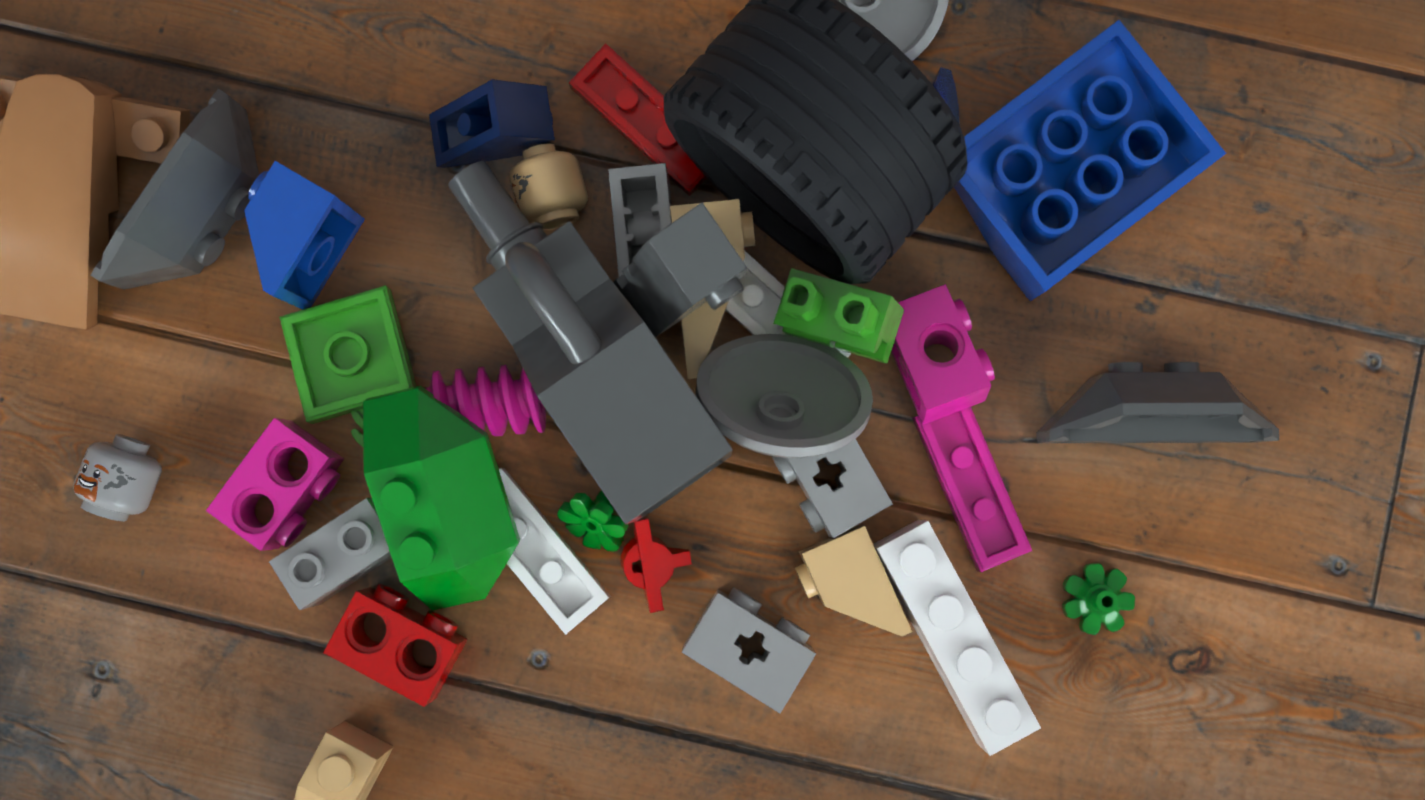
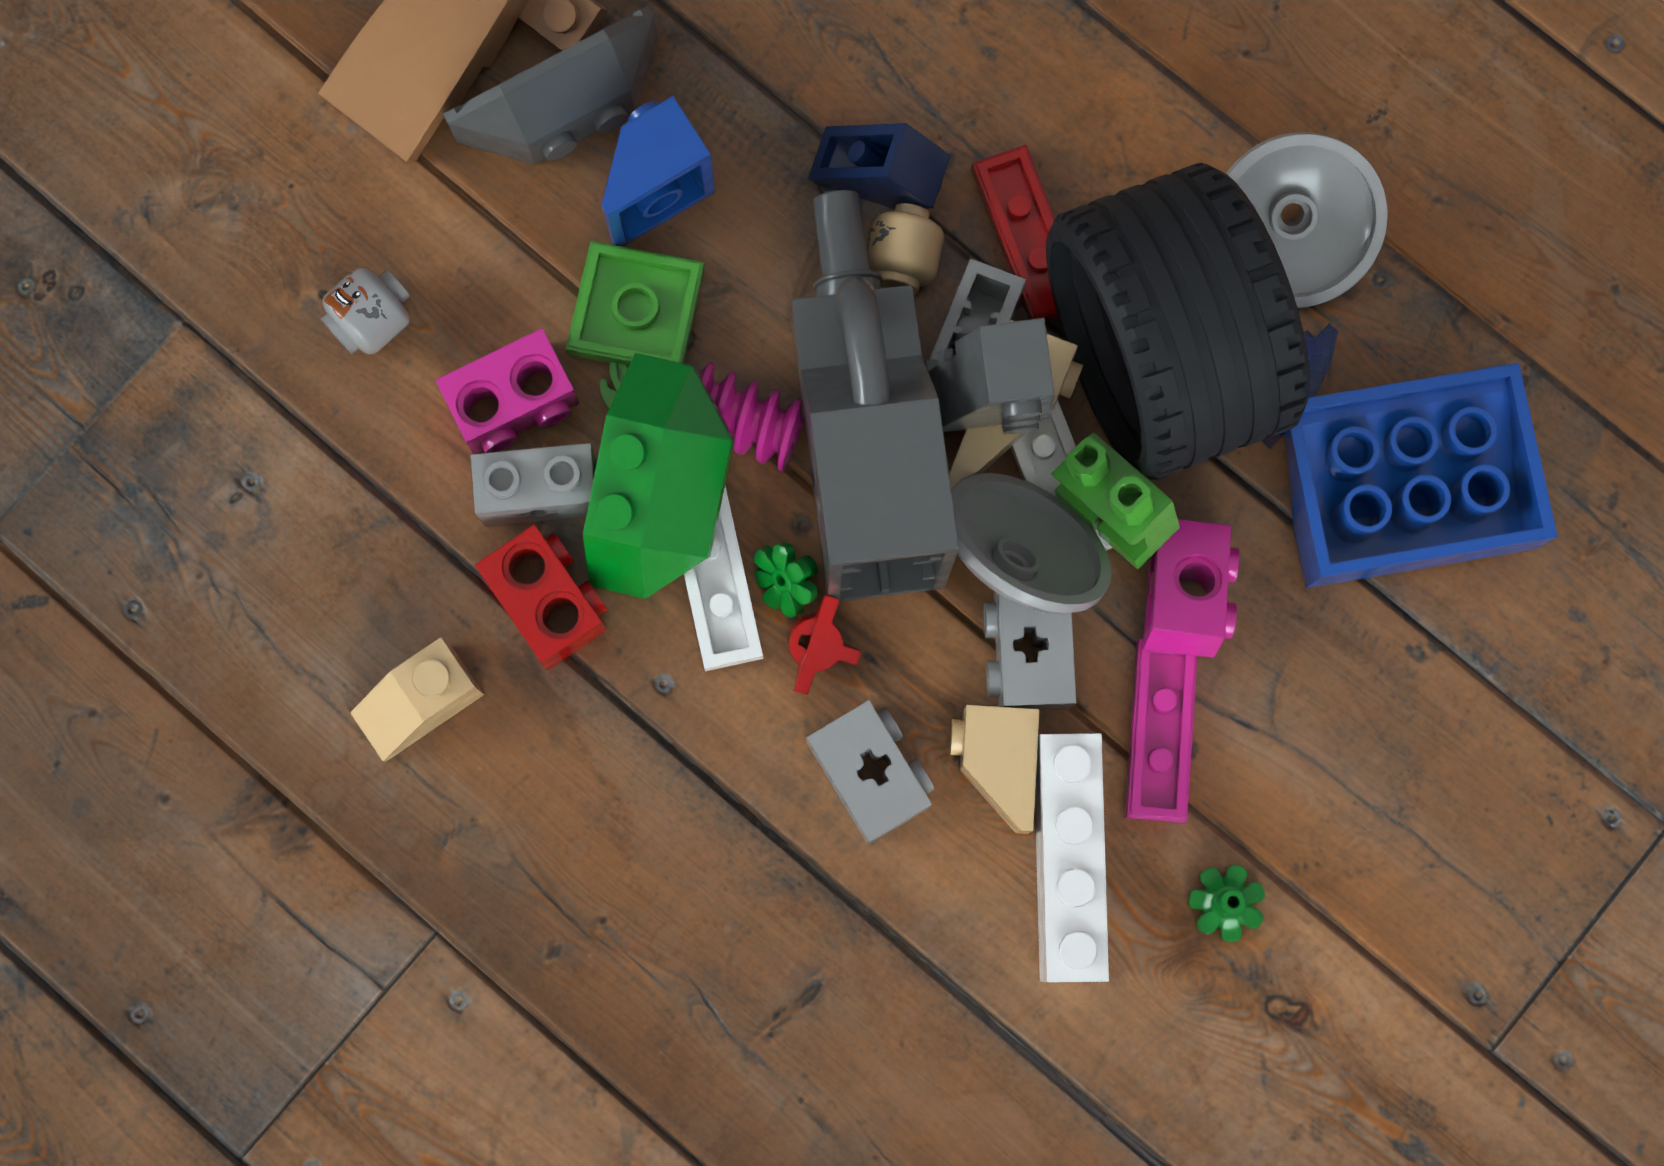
camera: 20 degrees right, 5 degrees down
(1158, 408) = (1375, 749): dark grey wedge -> none

